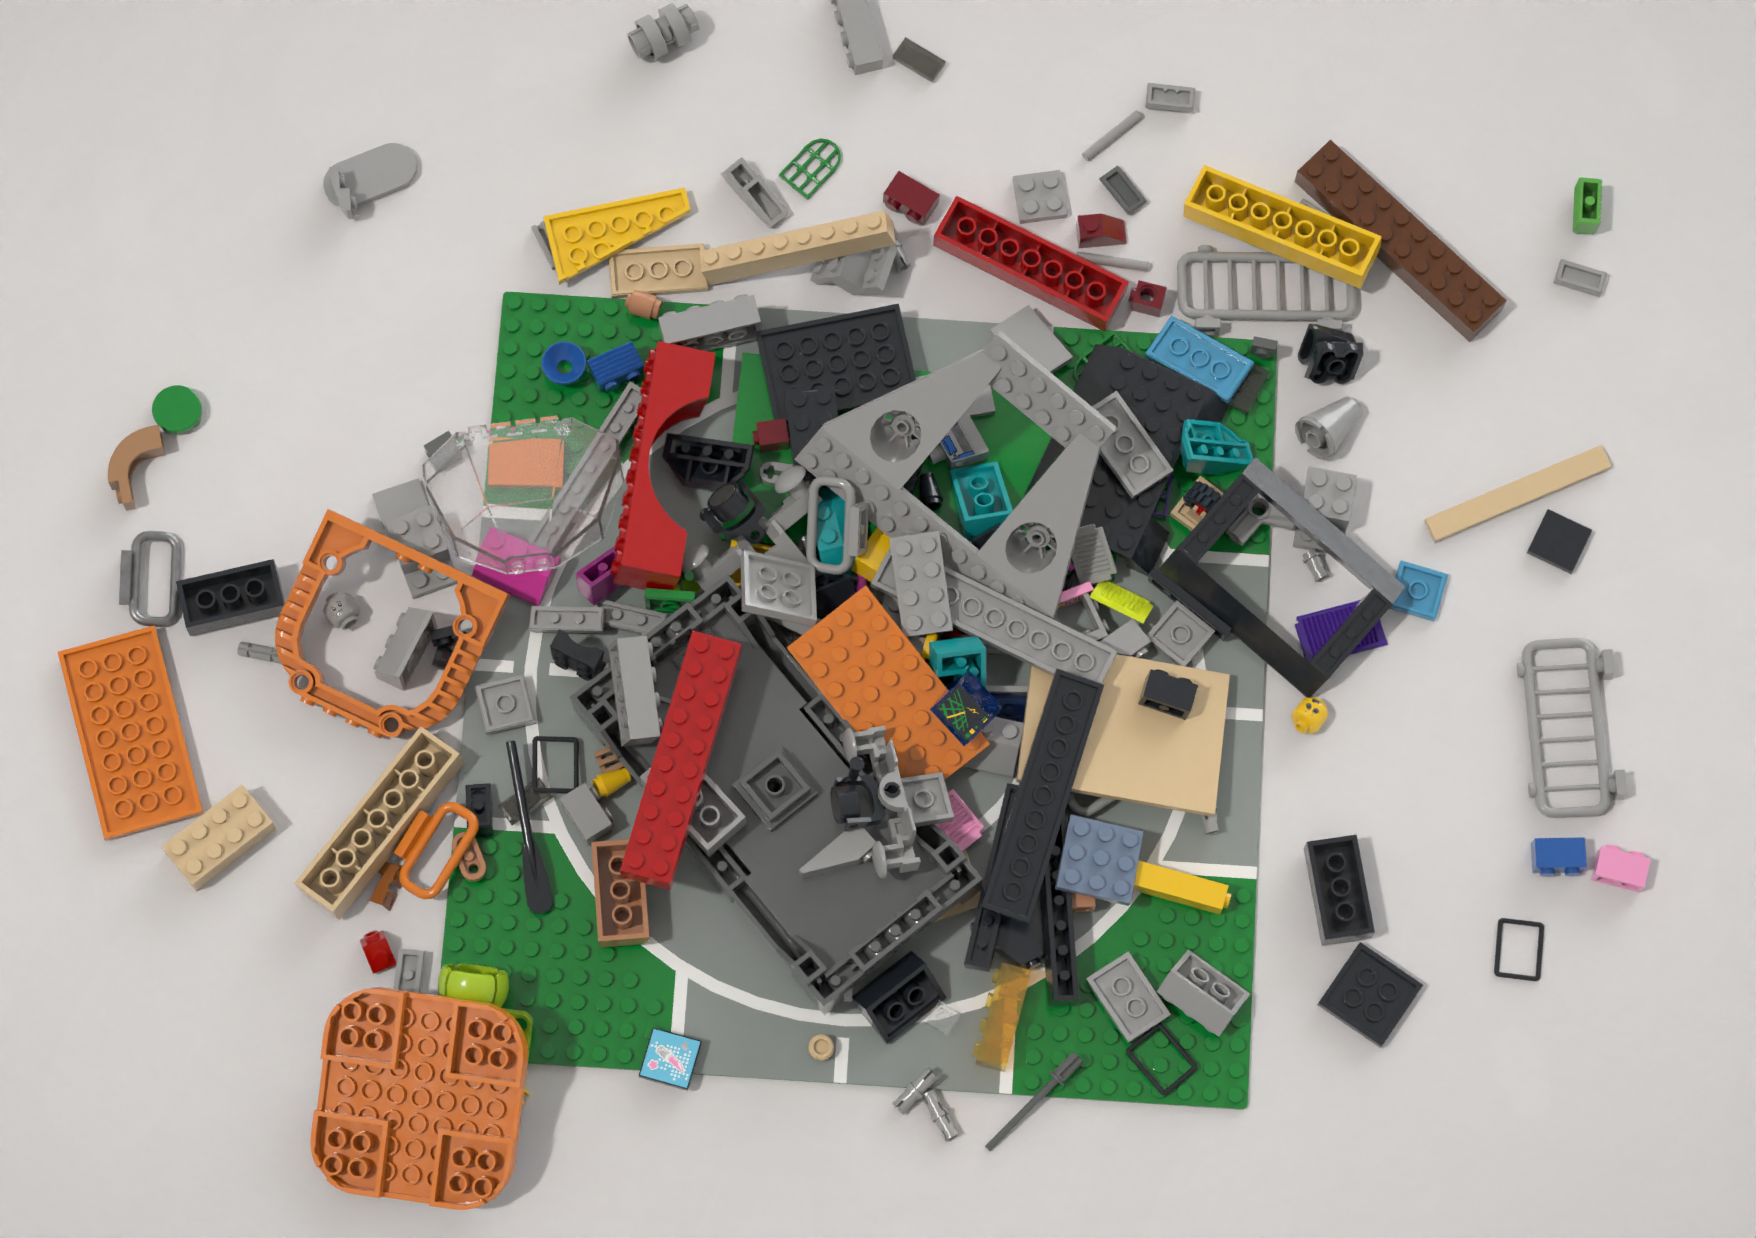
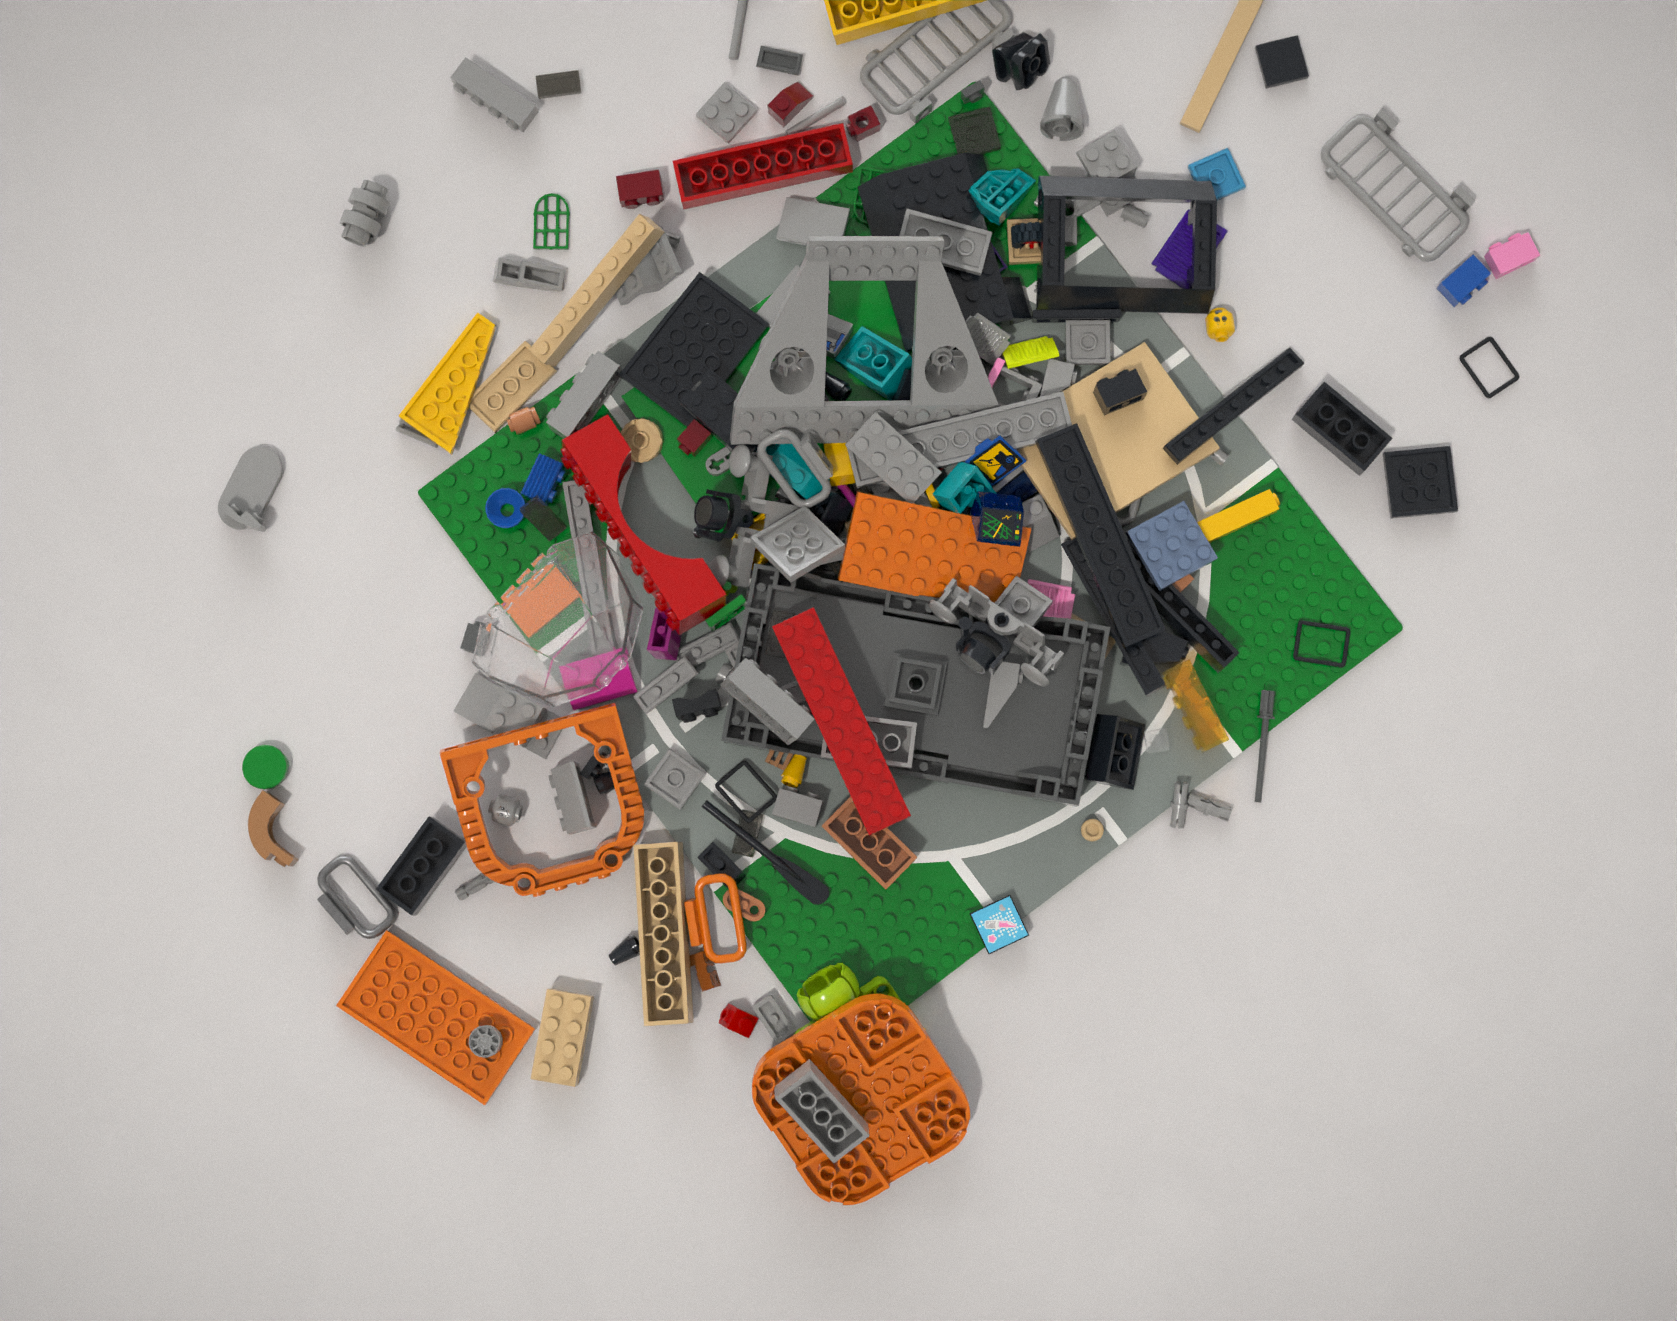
camera: 30 degrees left, 10 degrees up
(153, 784) = (485, 1041): none -> light grey wheel
(334, 811) = (625, 950): none -> black cone
(376, 1072) = (821, 1111): none -> light grey brick
(587, 396) = (543, 518): none -> clear smoke tile
(706, 461) = (667, 494): black wedge -> none
(727, 402) = (643, 439): none -> tan tile
(1009, 660) = (996, 459): none -> piece
(1128, 997) = (1265, 621): light grey plate -> none
(1199, 358) = (936, 137): dark azure tile -> none
(1203, 993) = (1313, 575): light grey slope -> none
(1259, 790) = (1233, 406): none -> black tile

